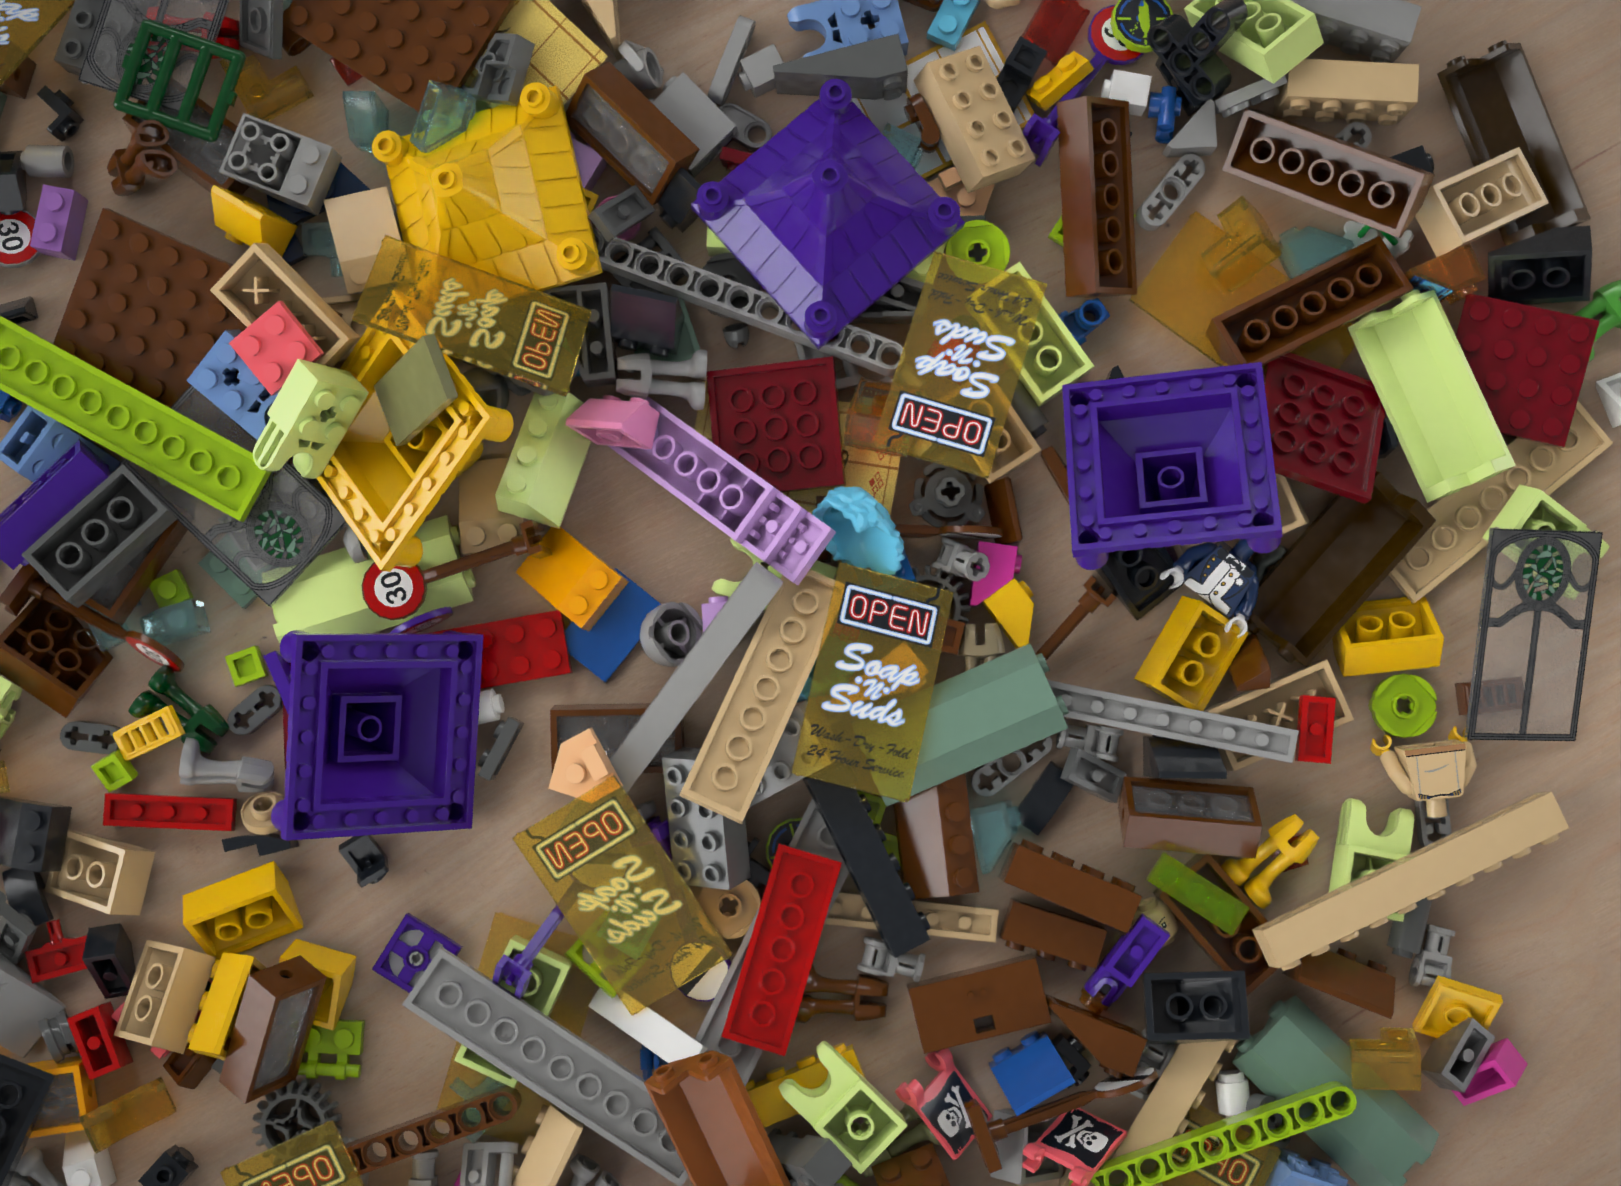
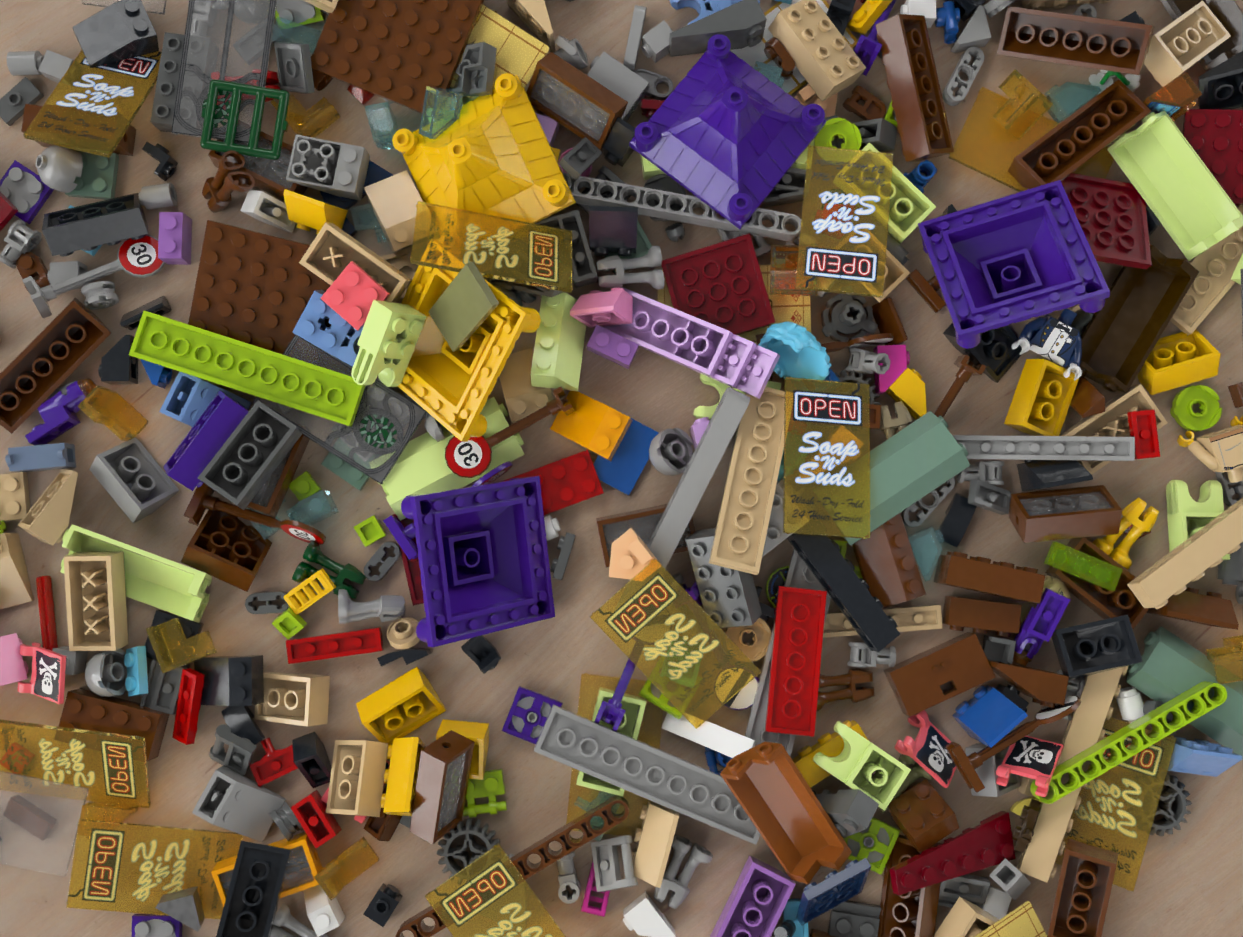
camera: 20 degrees left, 0 degrees up
(189, 206) = (267, 209): none -> white slope
(620, 476) = (612, 347): none -> medium lavender brick
(1035, 251) = (877, 132): none -> dark grey slope
(1037, 216) = (872, 109): none -> reddish brown plate
(1065, 984) = (998, 649): none -> dark grey panel

